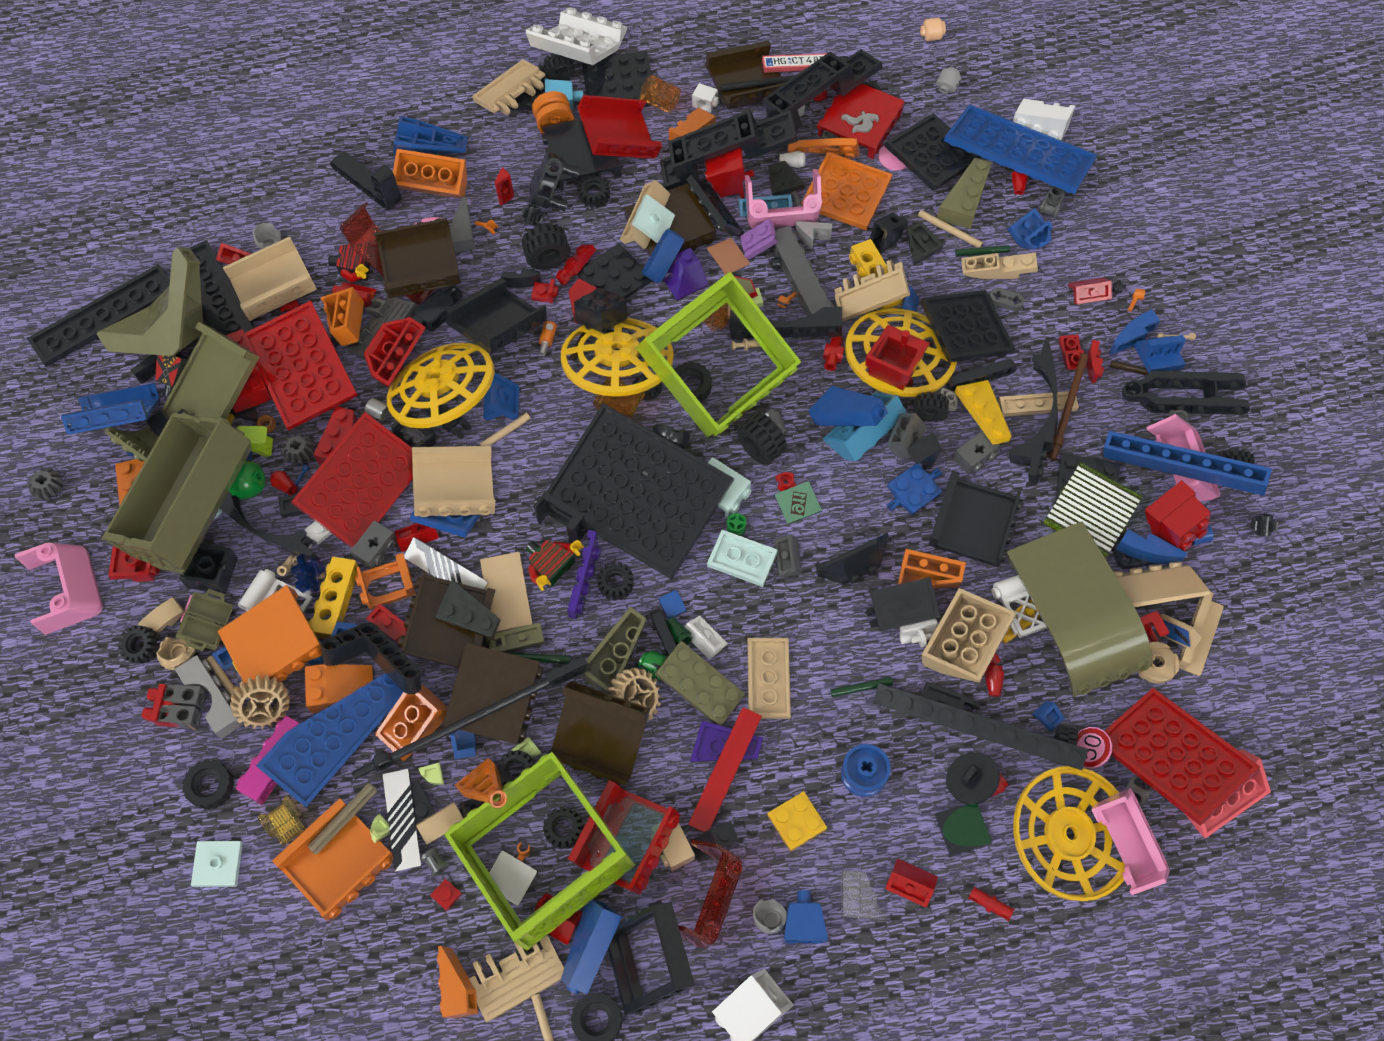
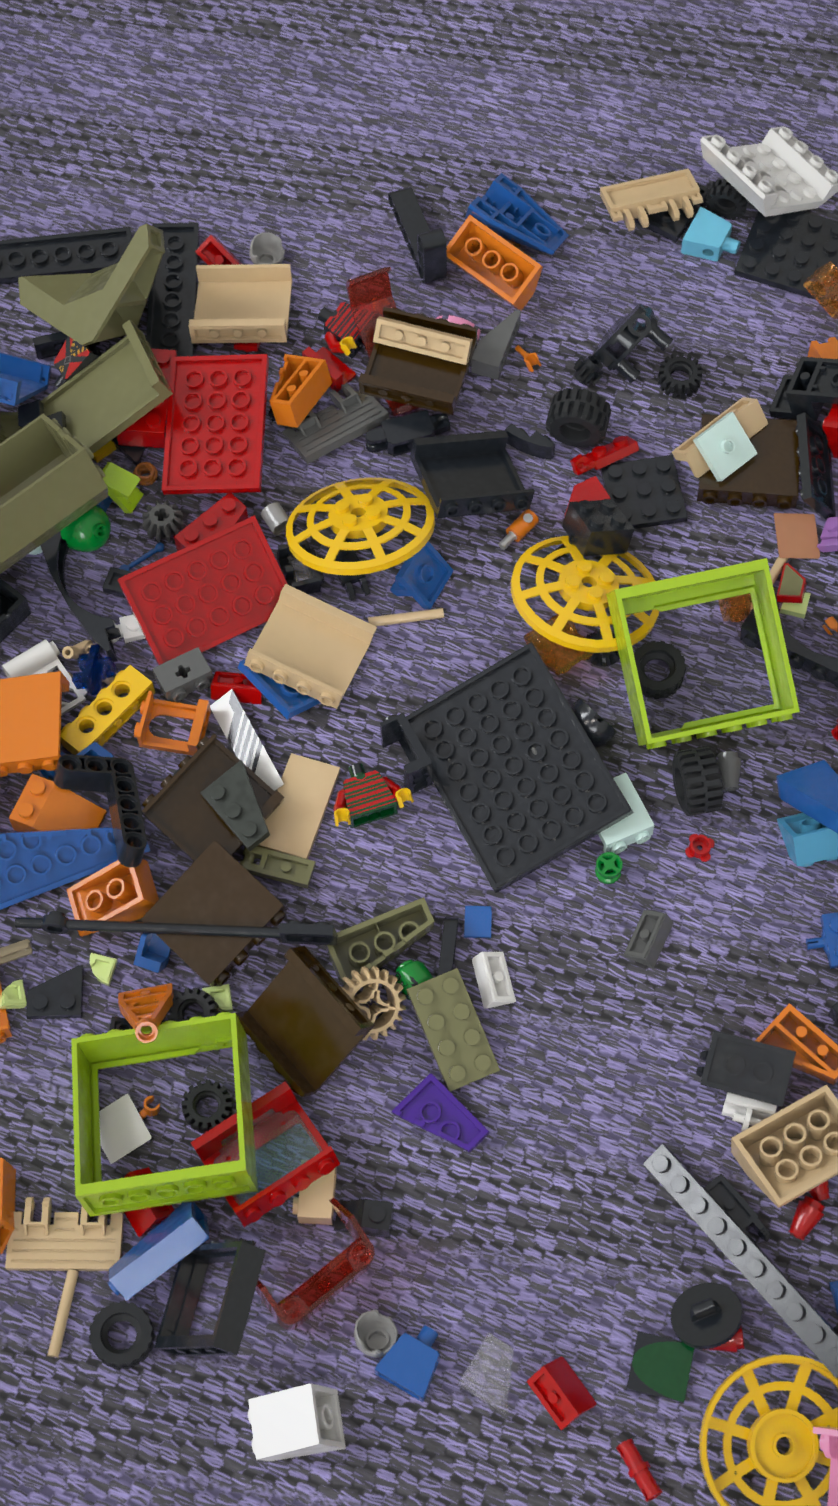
camera: 30 degrees right, 0 degrees up
(282, 482) = (125, 551): red cone -> none
(388, 623) = (147, 770): red hinge -> none
(391, 348) = (330, 454): red wedge -> none
(401, 820) = (40, 999): white sticker -> none
(413, 242) = (422, 340): none -> tan plate
(434, 862) = (49, 1065): dark grey bush -> none
(439, 822) = (74, 1024): tan tile -> none
(446, 894) = (41, 1108): red plate -> none
(504, 187) = (572, 320): red slope -> none
(545, 292) = (549, 472): red bracket -> none
(551, 109) = (684, 254): orange wheel -> none
(560, 659) = (294, 903): dark green bar -> none
(571, 143) = (697, 313): black panel -> none
(584, 573) = (395, 833): dark purple wing -> none
(617, 127) = (753, 309): red panel -> none
(618, 592) = (424, 845): black tyre -> none
(663, 256) = (712, 497): blue beam -> none
(678, 631) = (466, 957): dark green cone -> none
(685, 275) = (727, 533): dark purple slope -> none
(725, 770) = (424, 1143): red tile -> none
(742, 558) = (592, 911): light aqua plate -> none
(746, 344) = (753, 655): tan piece -> none
(769, 677) = (539, 1067): tan tile -> none
(797, 821) = (472, 1248): yellow plate -> none
(798, 503) = (699, 880): clear green sticker -> none
(855, 563) = (725, 988): black wedge -> none
(860, 687) = (640, 1137): dark green bar -> none
(876, 772) = (586, 1218): blue wheel -> none

